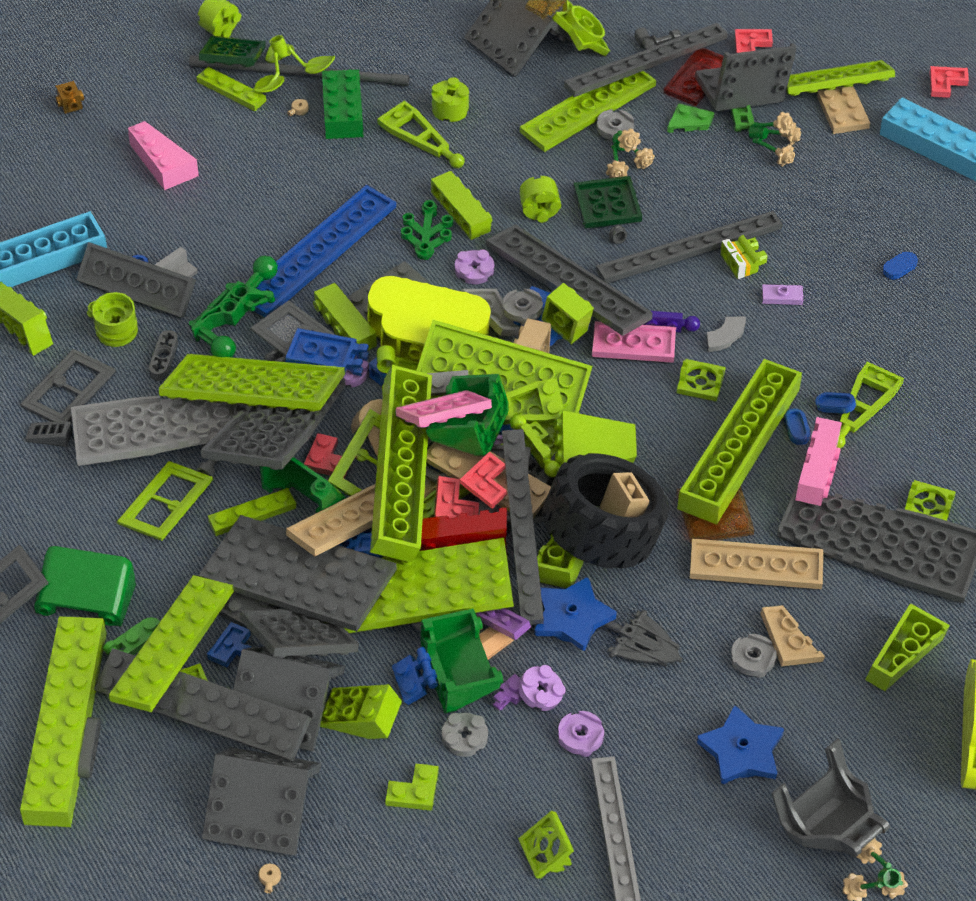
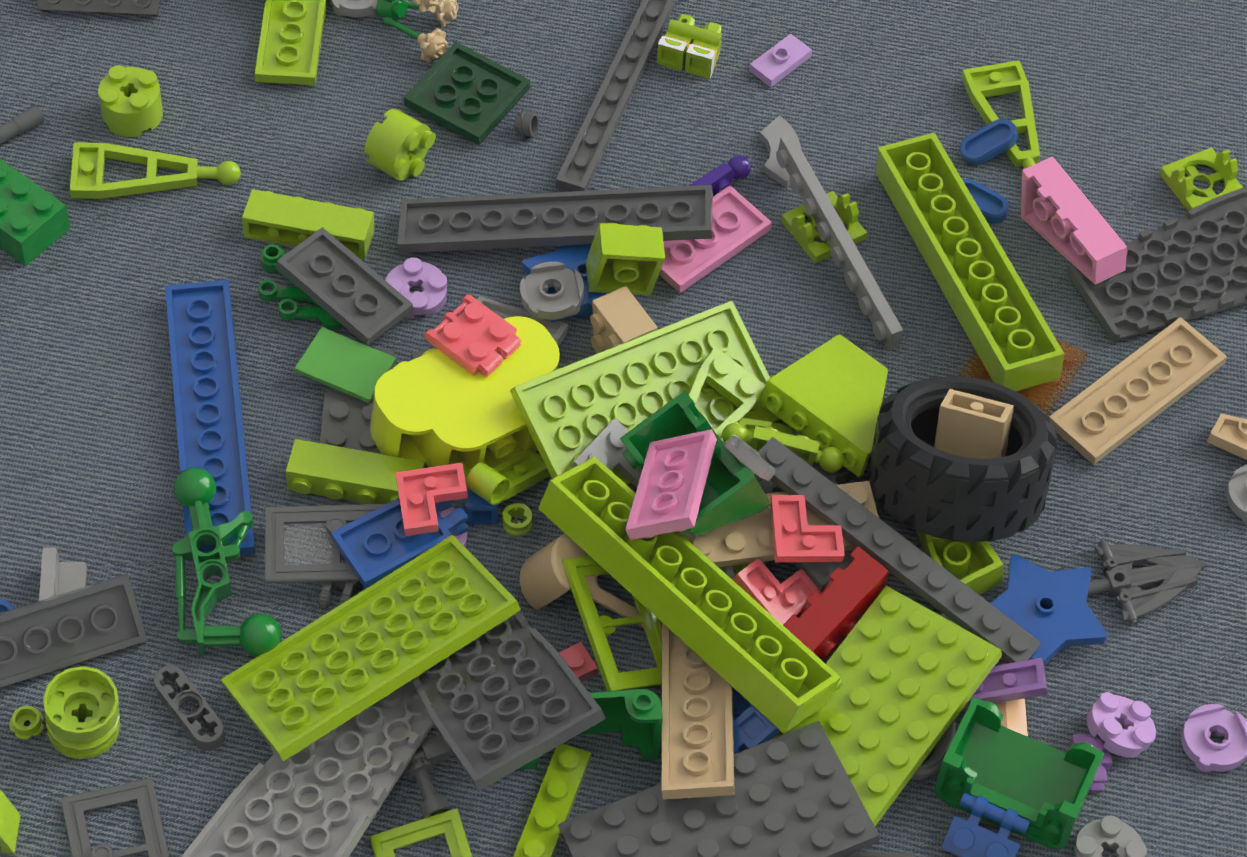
camera: 50 degrees left, 5 degrees up
(350, 337) = (422, 489): none -> coral plate
(397, 264) = (344, 364): none -> bright green piece
(437, 238) = (344, 286): none -> dark grey plate
(449, 291) = (475, 338): none -> coral plate
(491, 422) = (749, 457): none -> light grey tile
(688, 392) = (842, 246): none -> light grey plate

